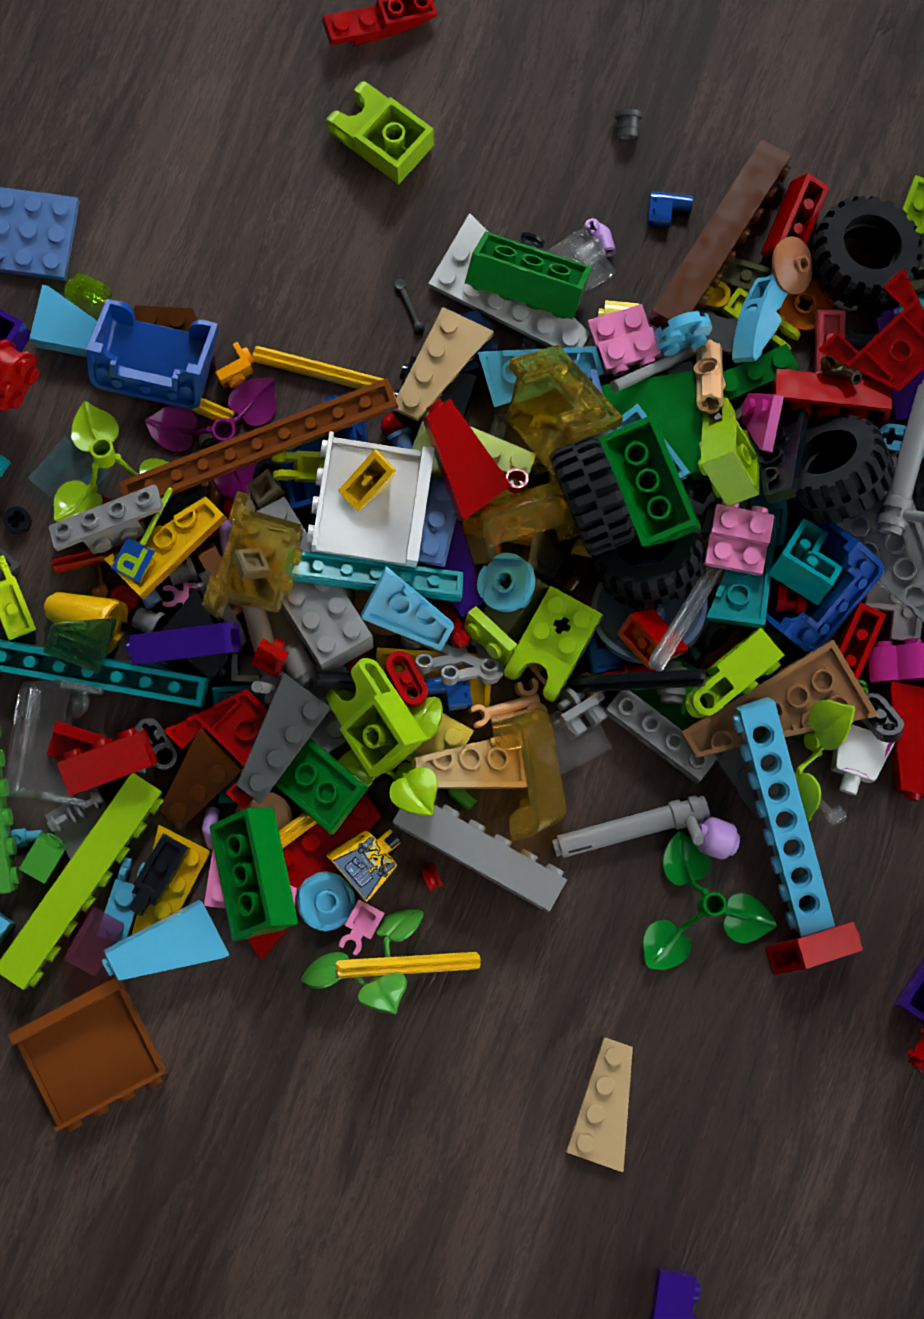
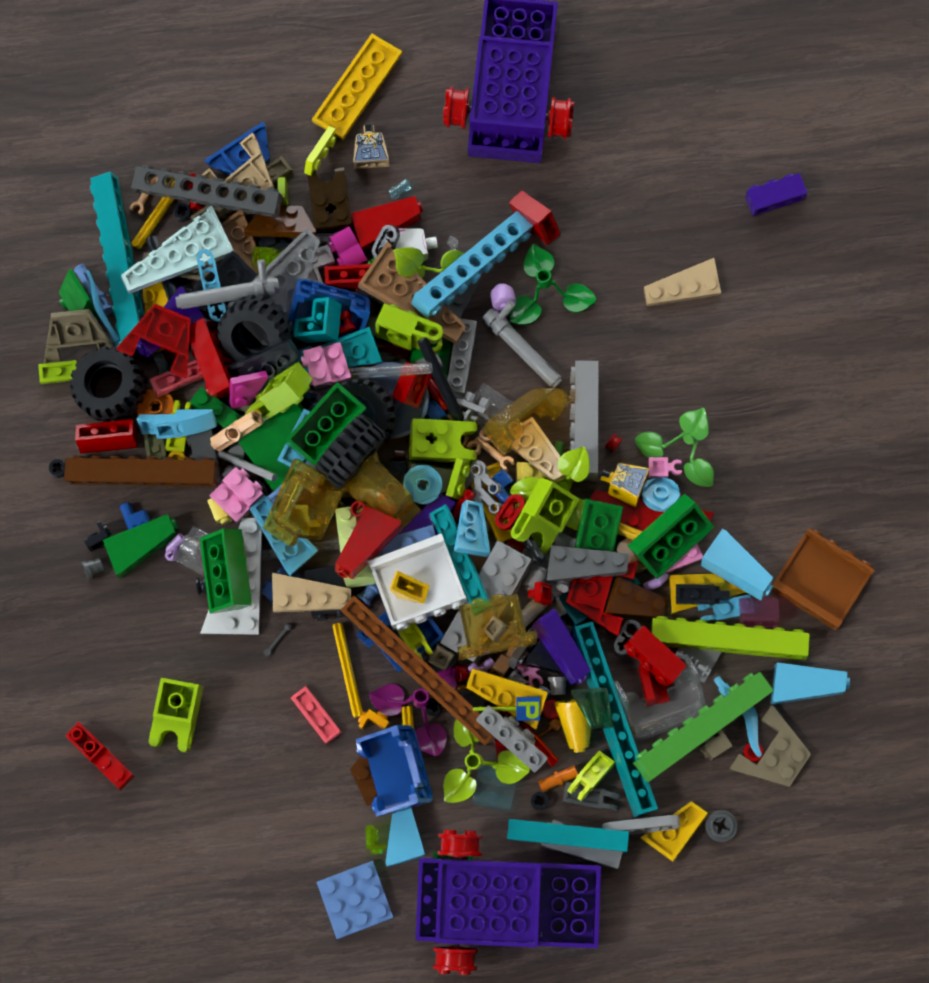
camera: 115 degrees left, 5 degrees down
(30, 558) = (558, 778): none -> orange pin
(43, 856) = (728, 666): bright green brick -> none
(285, 303) = (316, 715): none -> coral tile
(407, 964) = (670, 427): yellow axle -> none
(628, 190) = (139, 543): none -> green slope
(662, 150) = (96, 539): none -> black bracket
(683, 331) = (214, 453): medium azure plate -> none
(787, 137) = (51, 468): none -> black bush
(792, 265) = (140, 419): nougat dish -> none
(839, 370) = (194, 358): dark brown arm -> none

